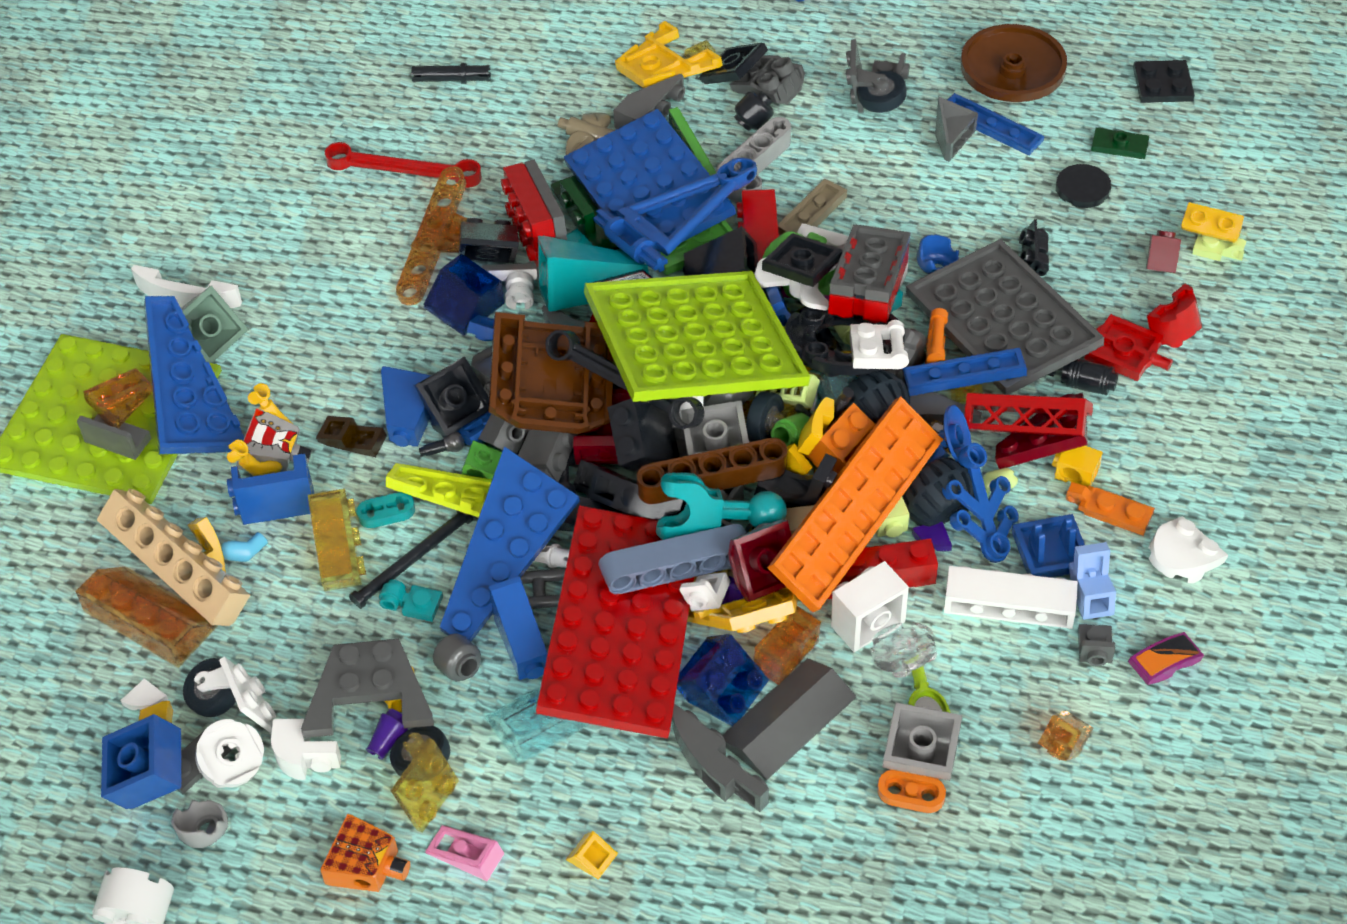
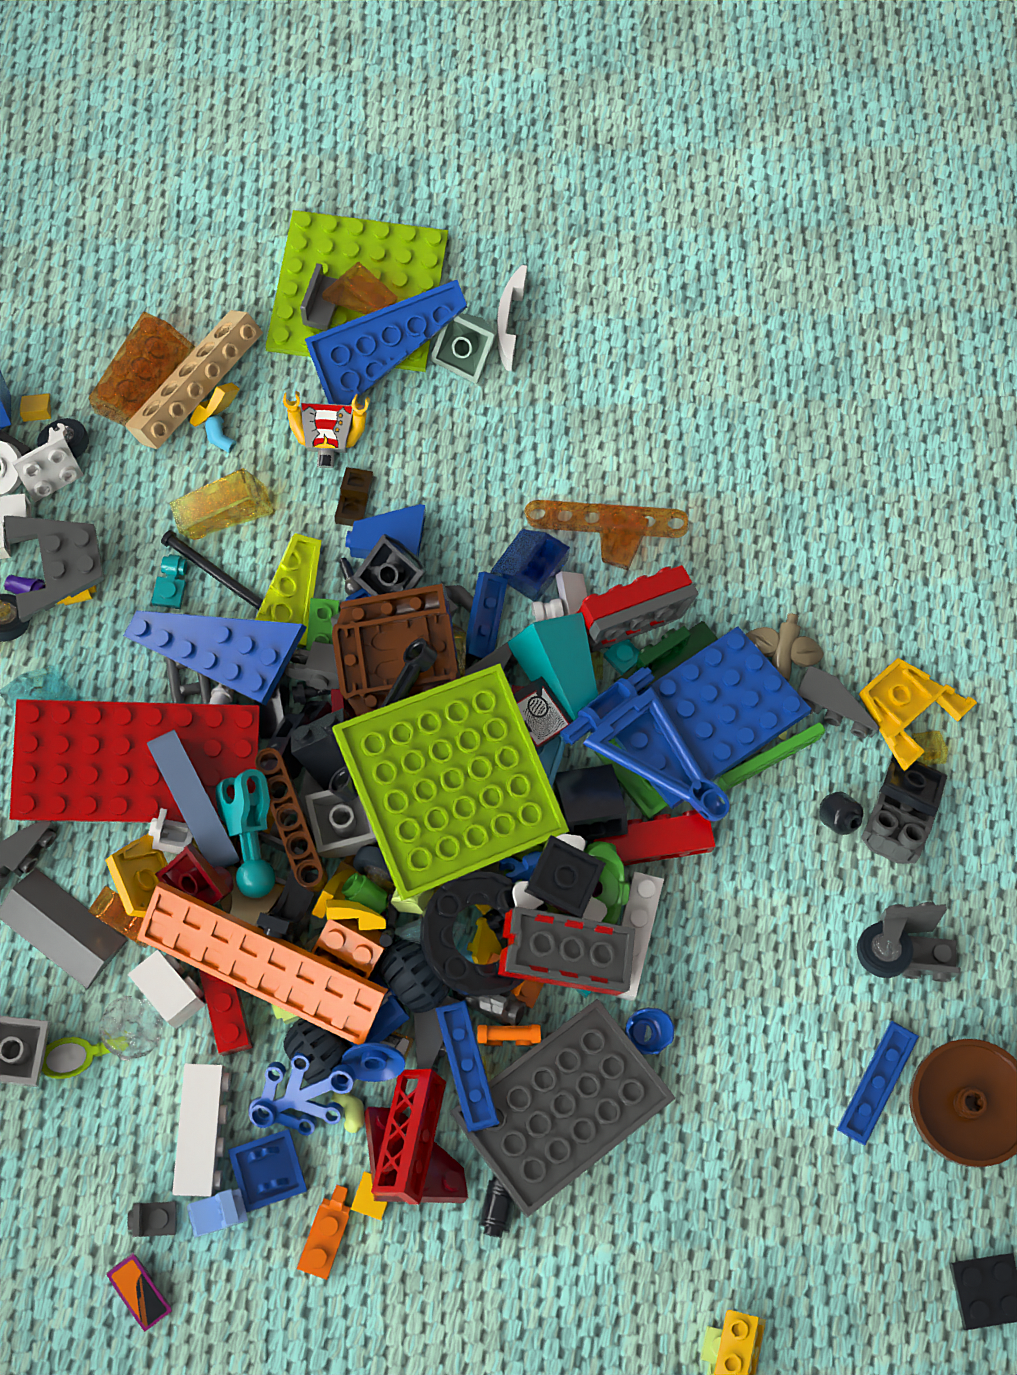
camera: 75 degrees right, 20 degrees up
(143, 696) = (61, 393): white tile -> none
(273, 494) = (274, 462): blue panel -> none
(385, 510) = (263, 544): teal beam -> none
(397, 164) = (709, 482): red piece -> none
(451, 73) = (854, 508): black pin -> none
(457, 657) = (105, 630): dark grey head -> none
(488, 241) = (585, 566): black slope -> none
(518, 628) = (129, 675): blue slope -> none
(721, 679) = (83, 857): clear blue slope -> none
(763, 149) = (771, 826): light grey beam -> none
(814, 207) = (704, 891): dark tan plate -> none
(868, 346) = (453, 956): white plate -> none
(936, 533) = (274, 1049): dark purple tile -> none
(953, 127) = (849, 1037): dark grey slope -> none
(1034, 248) = (694, 1137): black hinge -> none
(1065, 736) = (34, 1189): clear orange brick -> none
(1083, 185) = (793, 1194): black tile -> none
(1120, 143) = (871, 1237): dark green plate -> none
(1128, 348) = (547, 1245): red plate -> none
(1163, 252) = (693, 1289): slope -> none
(1178, 319) = (586, 1309): red cylinder -> none
(1184, 550) = (273, 1311): white slope -> none

